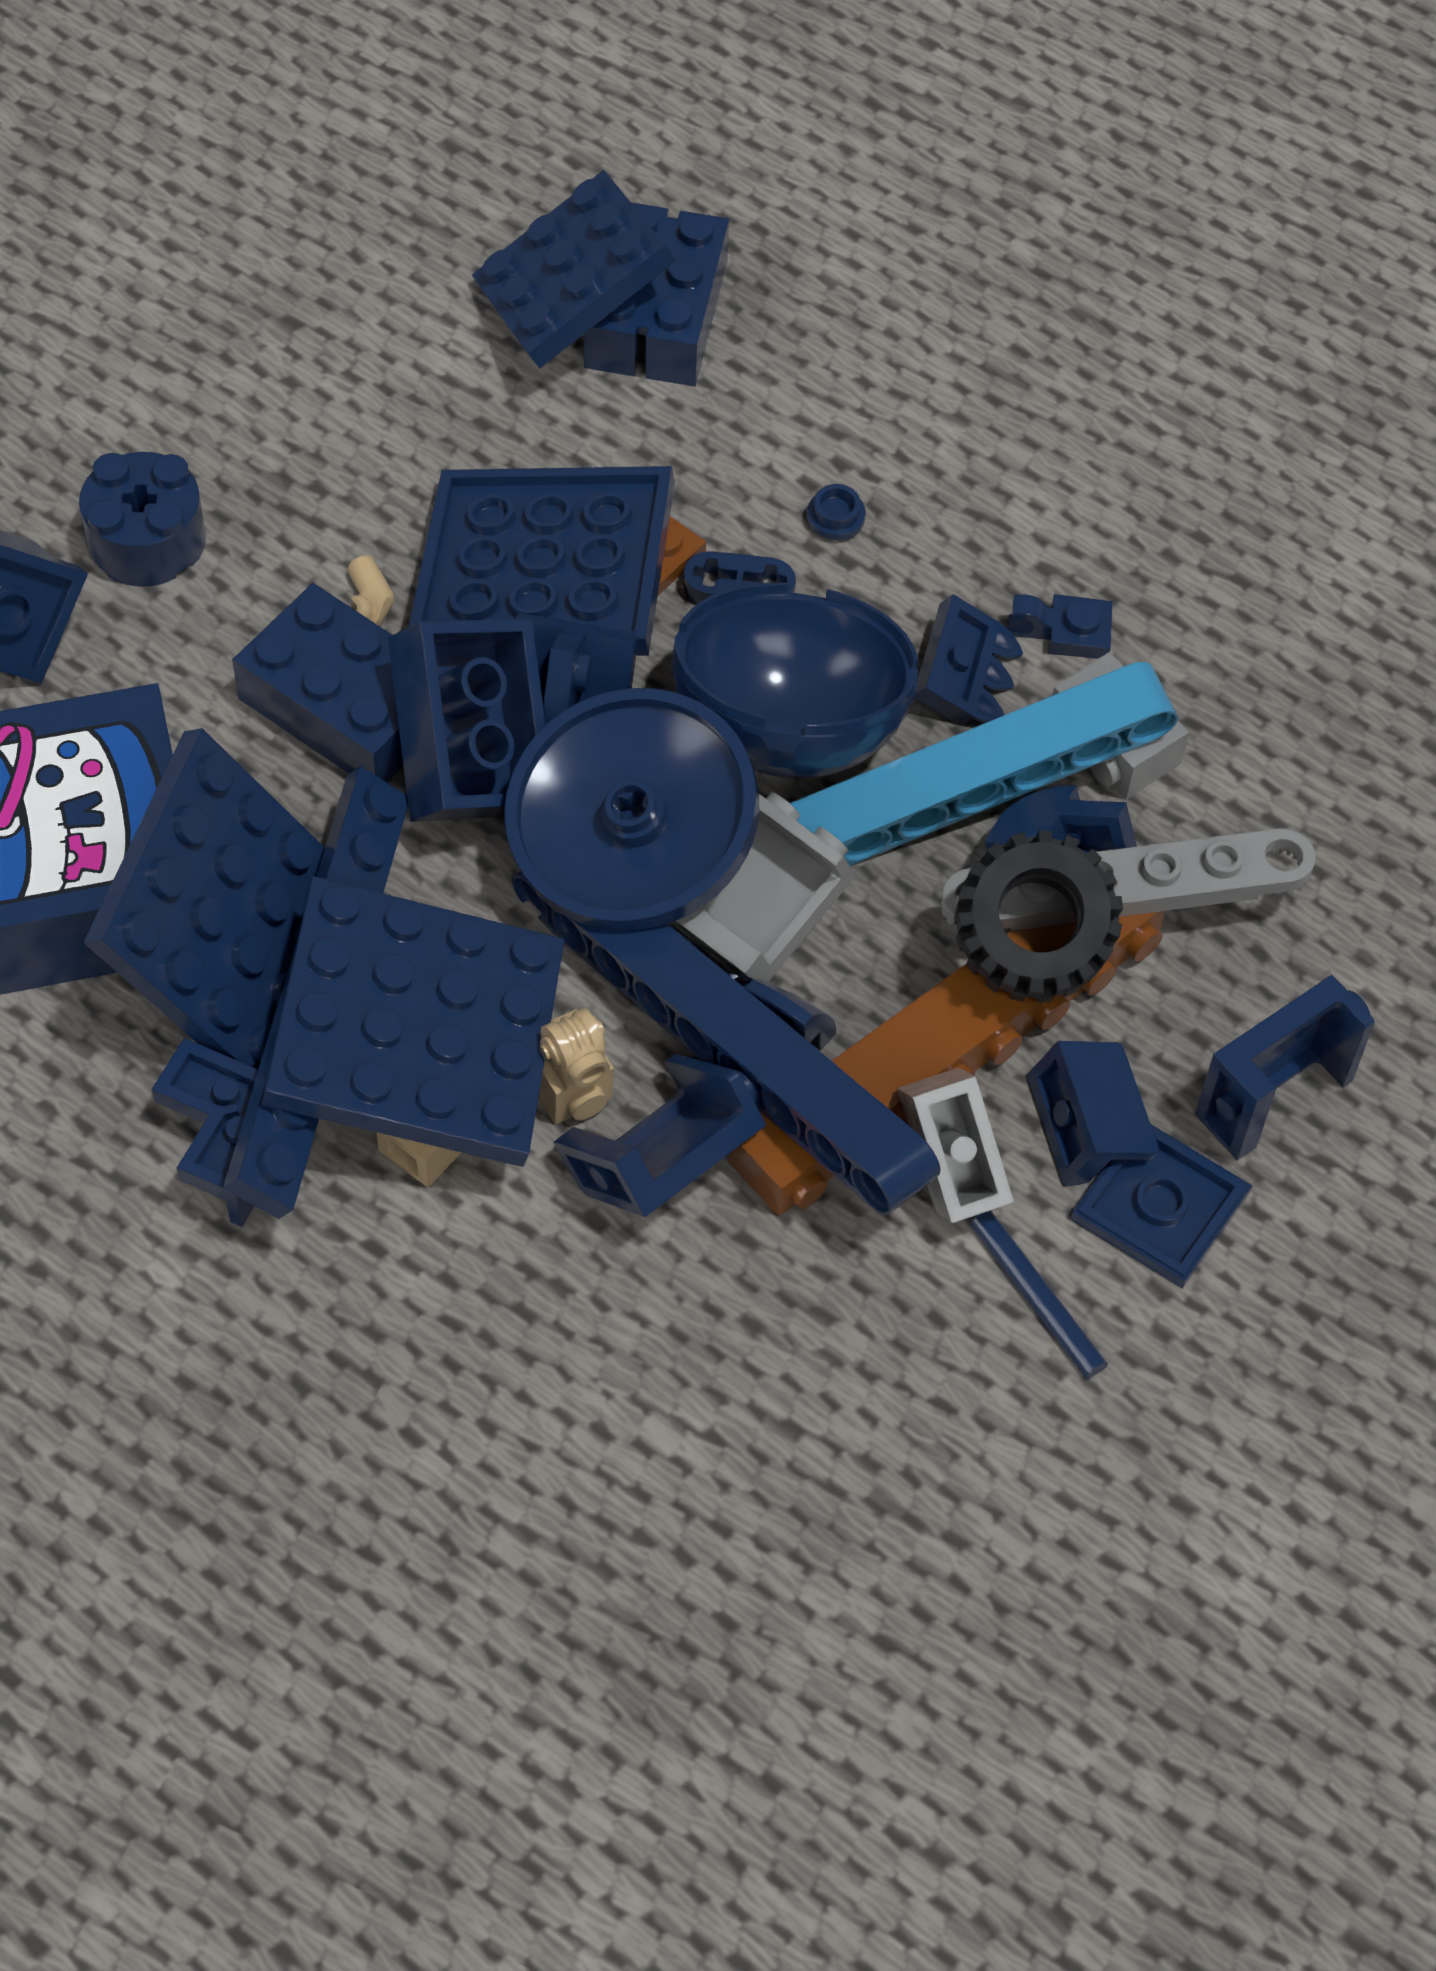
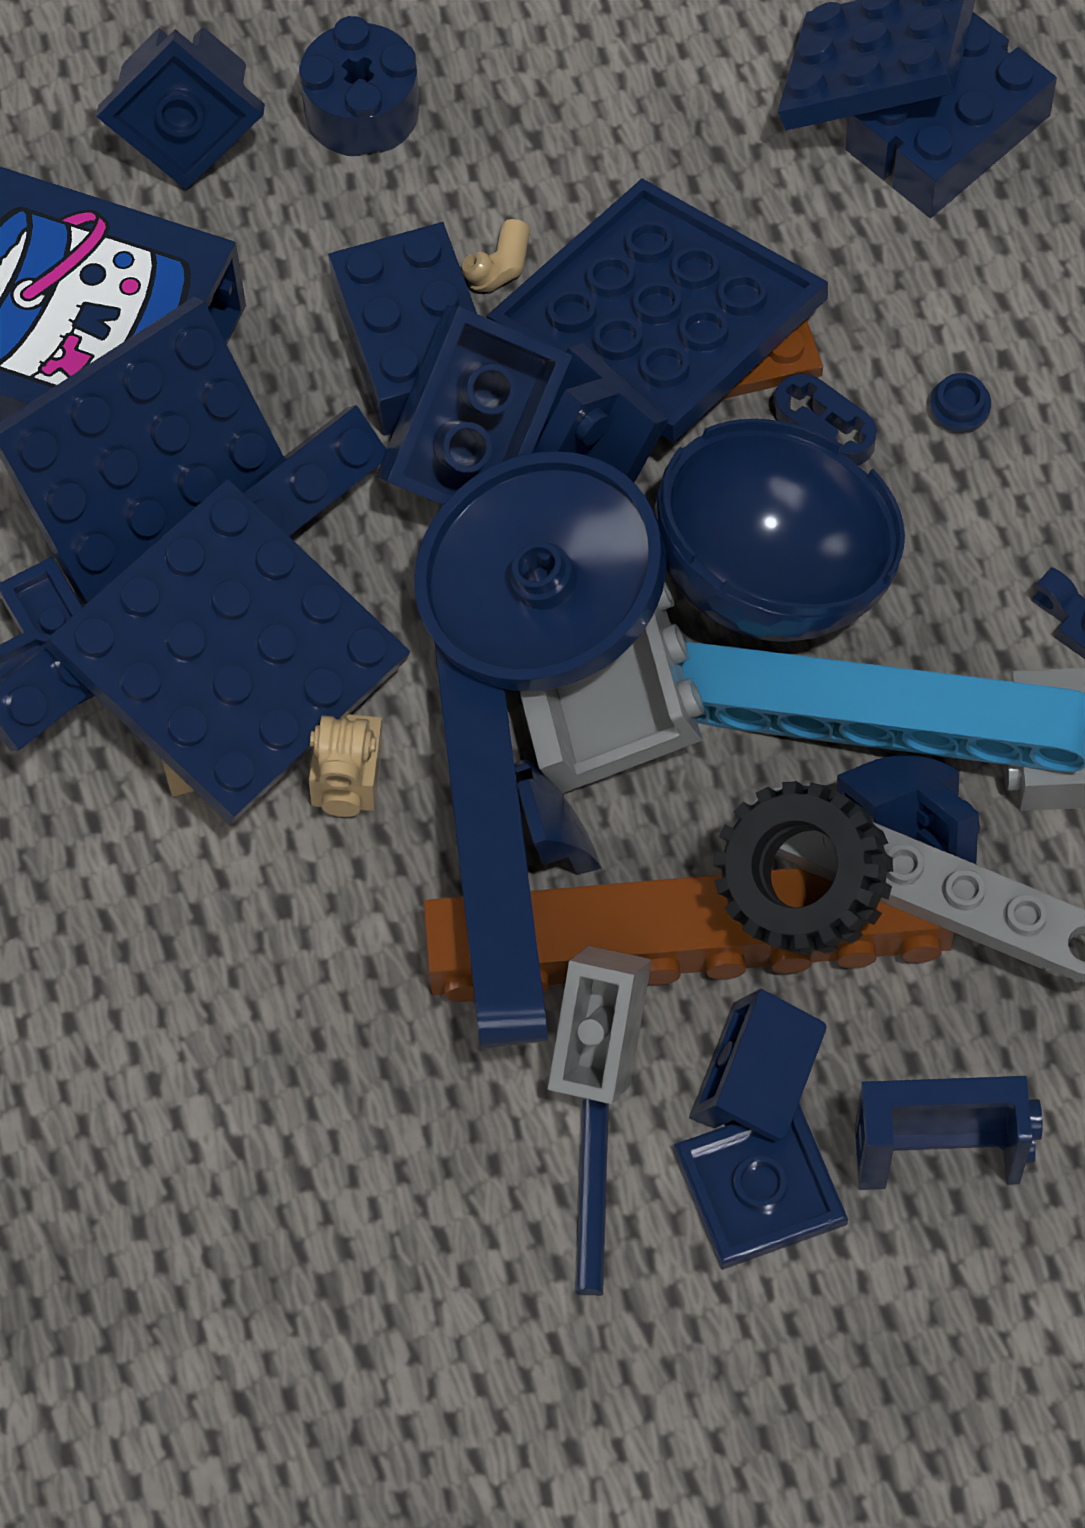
camera: 40 degrees right, 5 degrees up
(672, 1144) = (368, 879): dark blue panel -> none
(963, 663) = (964, 602): dark blue plate -> none

